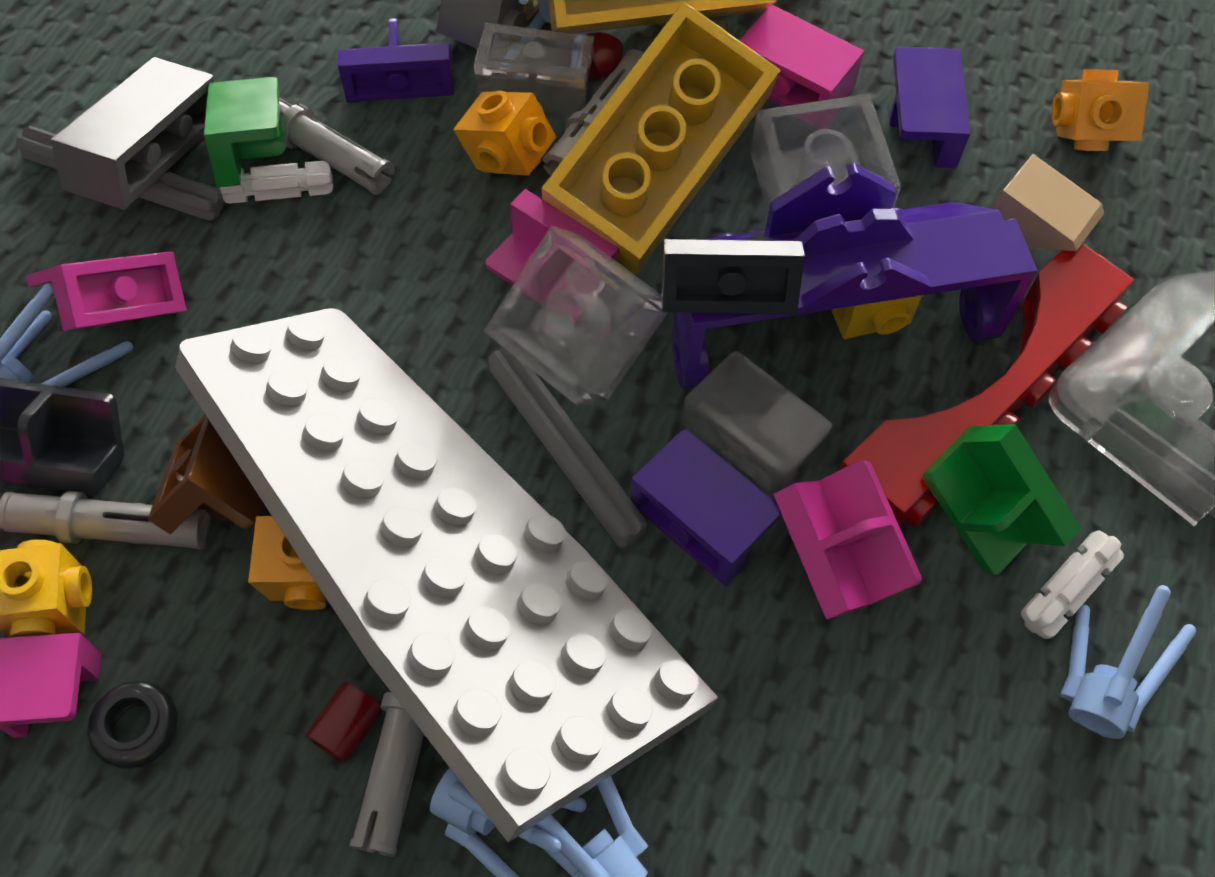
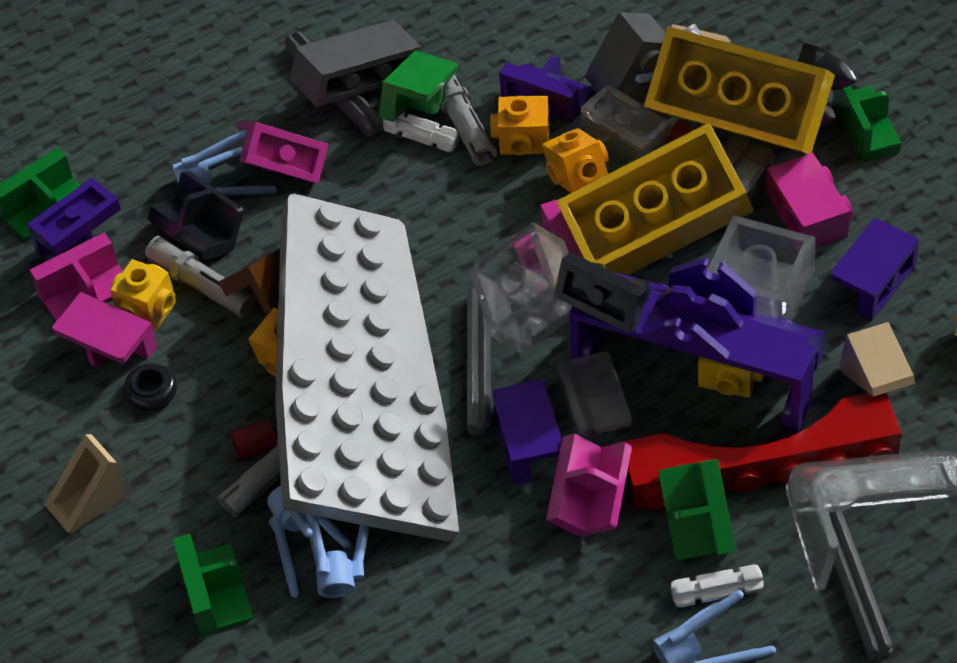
camera: 40 degrees right, 10 degrees down
(408, 118) = (521, 124): none -> light orange brick

